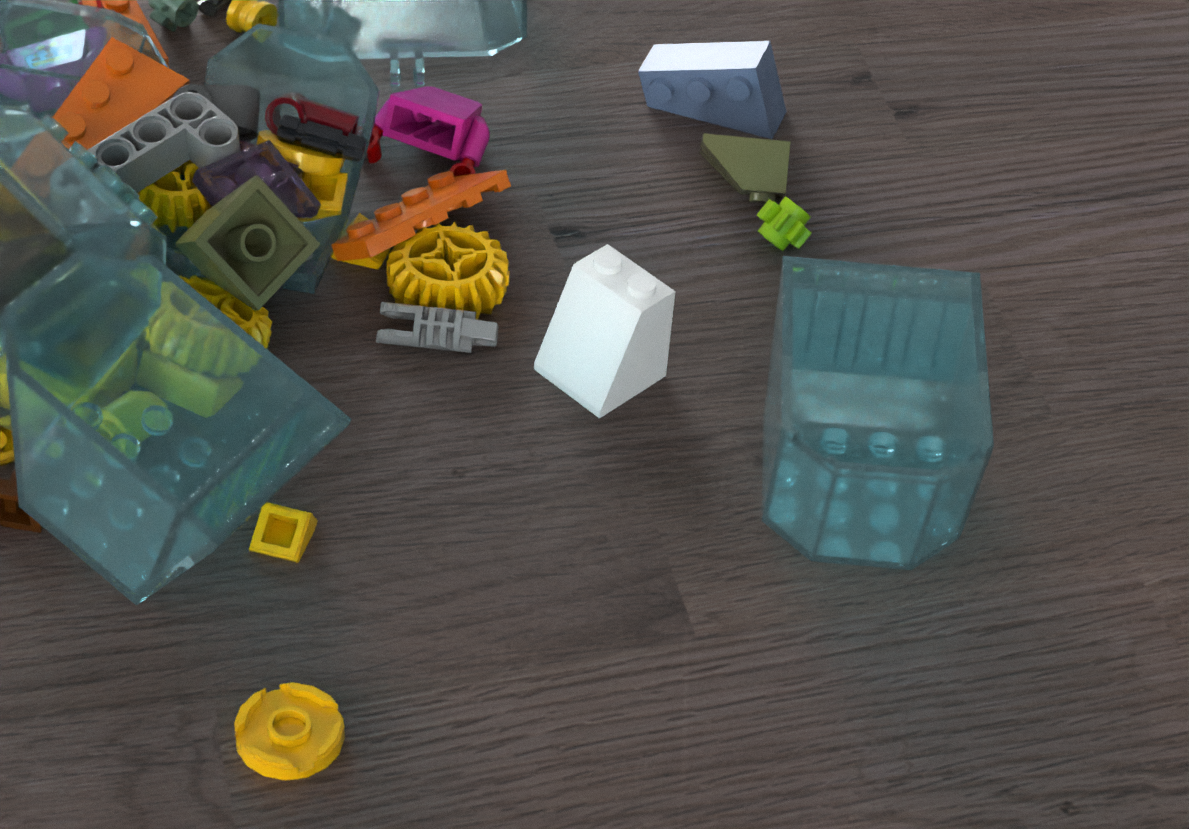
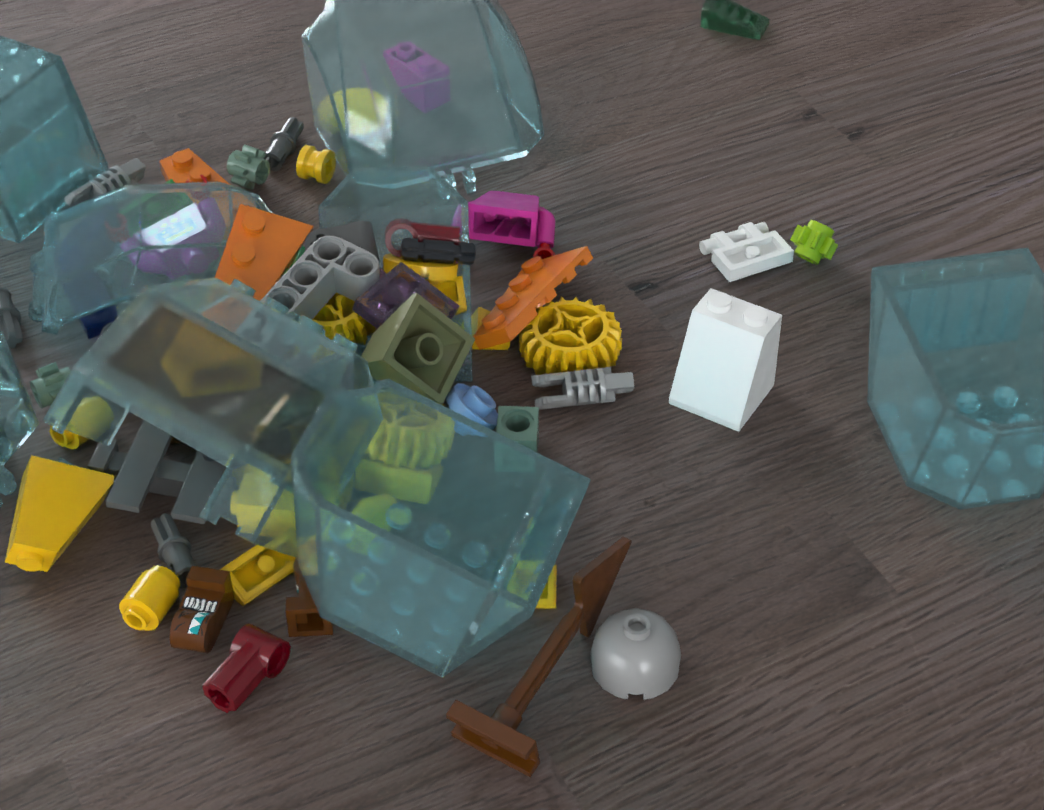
camera: 10 degrees left, 0 degrees up
(289, 731) = (617, 754): yellow tile -> none
(298, 324) = (473, 404): none -> light blue plate
(326, 549) = (498, 733): none -> reddish brown piece
(337, 365) = (519, 425): none -> sand green brick
(357, 630) = (635, 654): none -> light grey cylinder
(703, 217) = (747, 250): none -> white plate
(716, 84) = (709, 141): sand blue wedge -> none
(749, 164) = (766, 200): olive slope -> none

